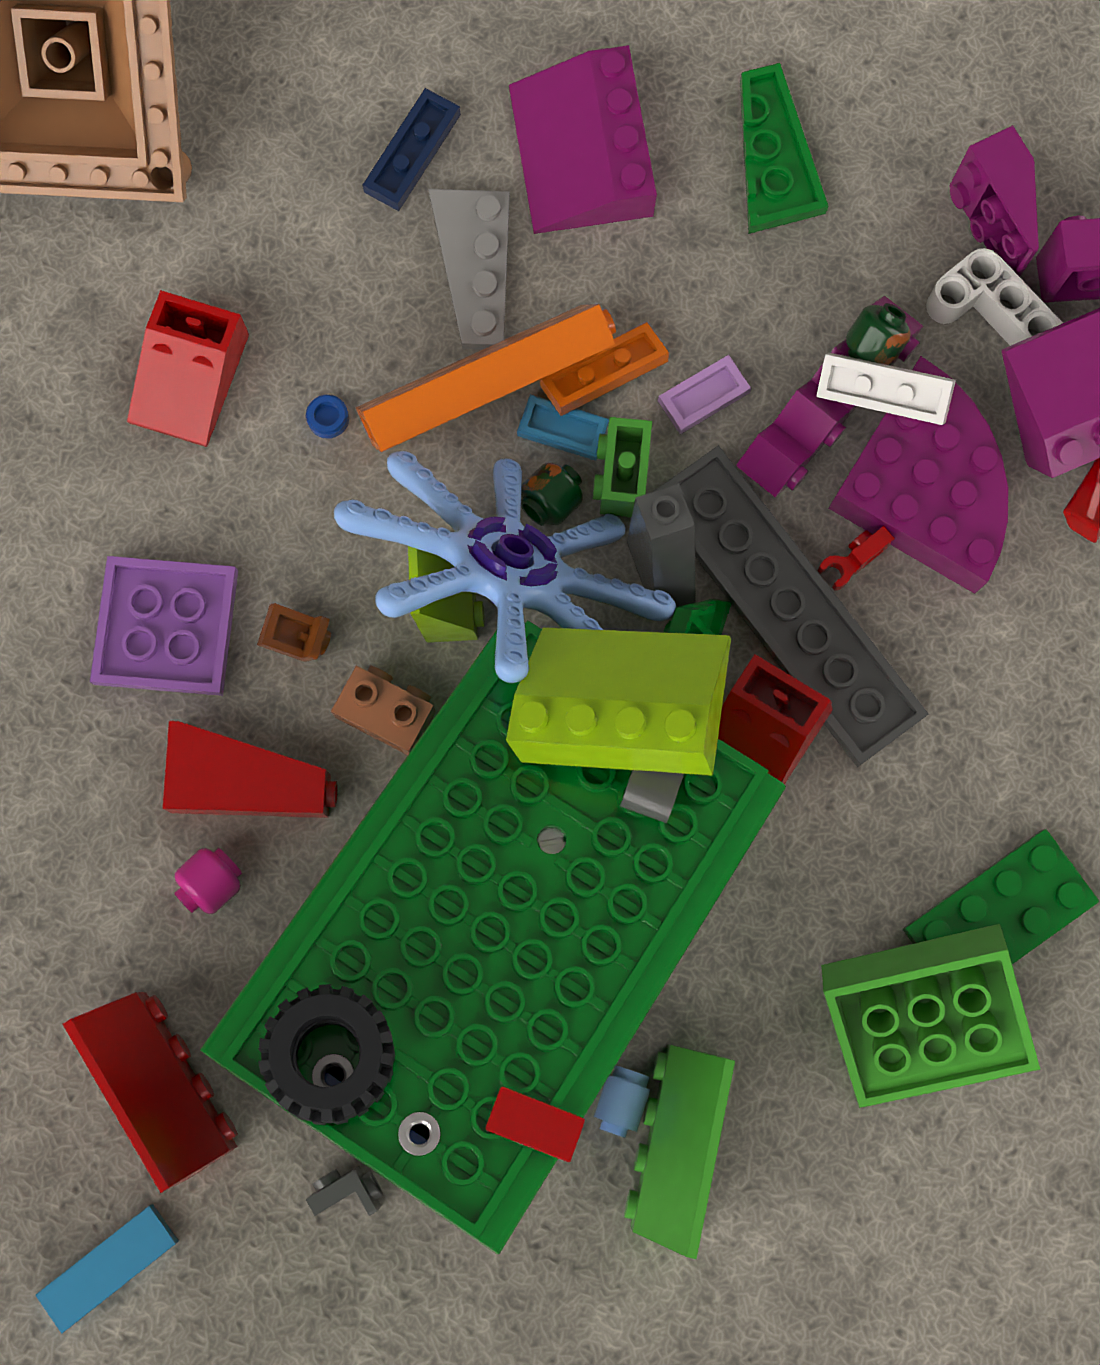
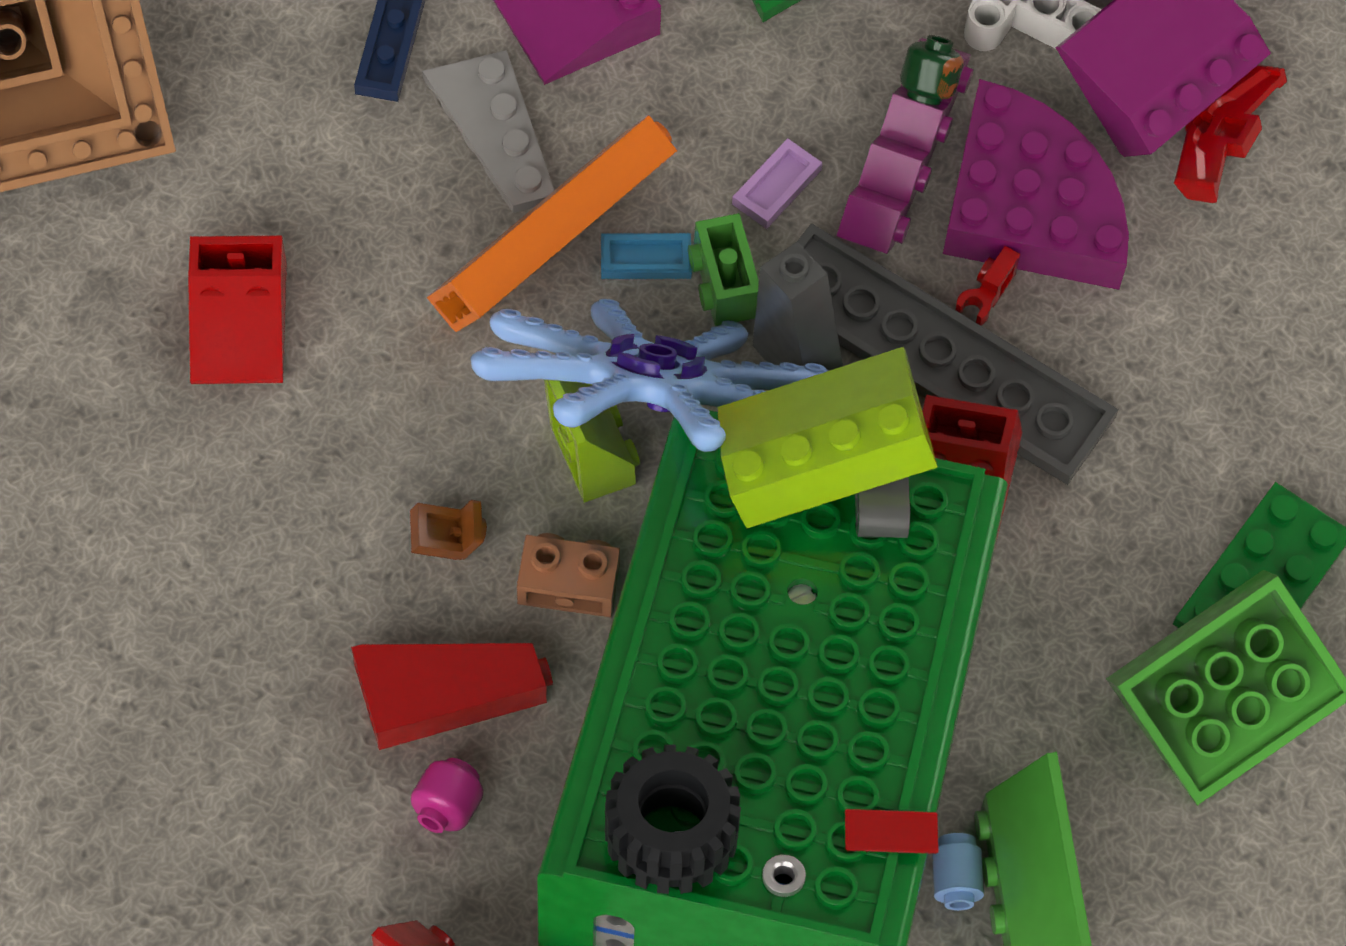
camera: 20 degrees left, 15 degrees down
(164, 625) = (305, 566): medium lavender plate -> none
(327, 416) = (398, 316): blue tile -> none
(551, 494) = (662, 312): dark green head -> none
(592, 377) = (668, 187): orange plate -> none
(886, 388) = (957, 114): white plate -> none

